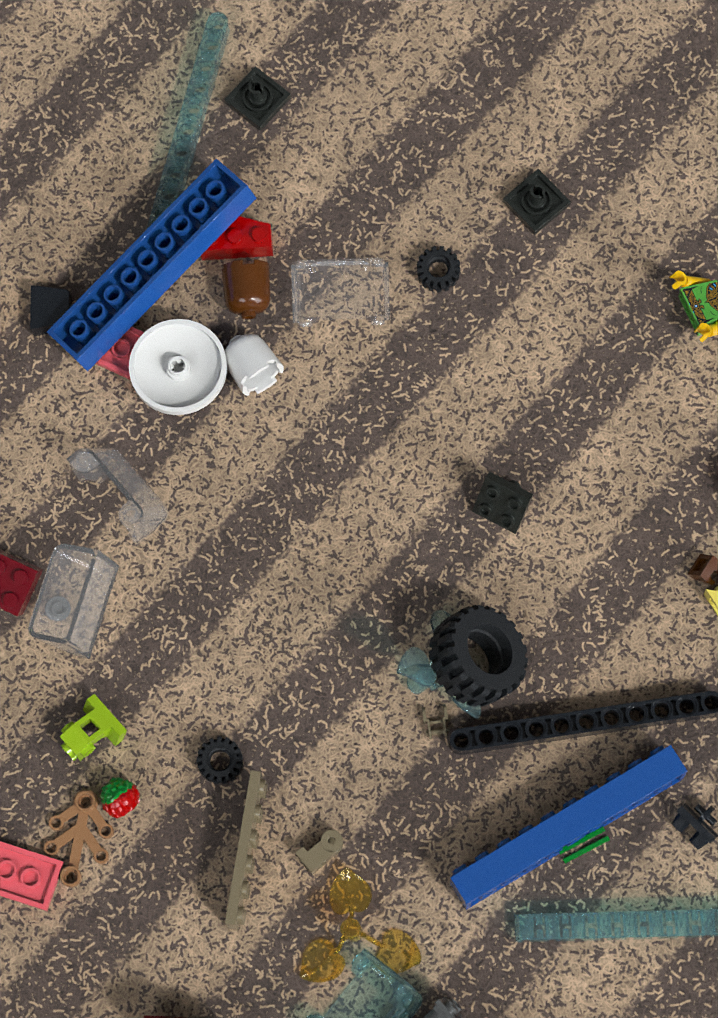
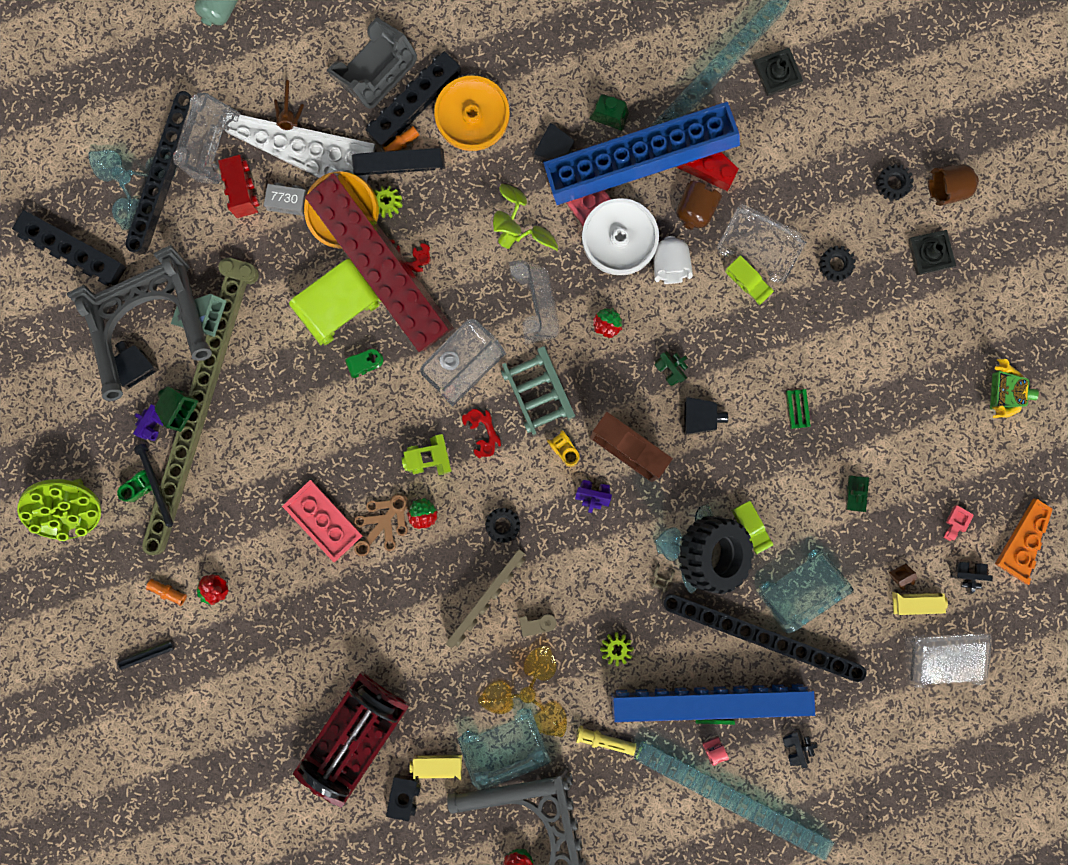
camera: 25 degrees right, 10 degrees up
(50, 421) = (504, 223): none -> lime plant
(92, 239) = (610, 112): none -> dark green torso
(122, 656) = (487, 448): none -> red helmet
(201, 578) = (556, 393): none -> sand green fence
(216, 469) = (607, 322): none -> piece
(240, 635) = (563, 448): none -> yellow piece
(305, 672) = (593, 498): none -> dark purple hips
(306, 476) = (667, 361): none -> dark green hips
(314, 589) = (630, 447): none -> copper tile
(349, 338) = (749, 280): none -> lime piece
(380, 515) = (701, 416): none -> black torso
(424, 818) = (623, 651): none -> lime gear
(452, 135) = (886, 190): none -> black tyre
(461, 943) = (597, 739): none -> light yellow pin
(473, 433) = (798, 408): none -> green tile
(496, 597) = (748, 517): none -> lime piece
(502, 502) = (791, 454): pearl dark grey plate -> none
(516, 116) = (952, 183): none -> reddish brown cylinder
(601, 505) = (857, 493): none -> dark green hips
(601, 644) = (805, 591): none -> clear light blue windscreen
(603, 879) = (715, 751): none -> coral leg

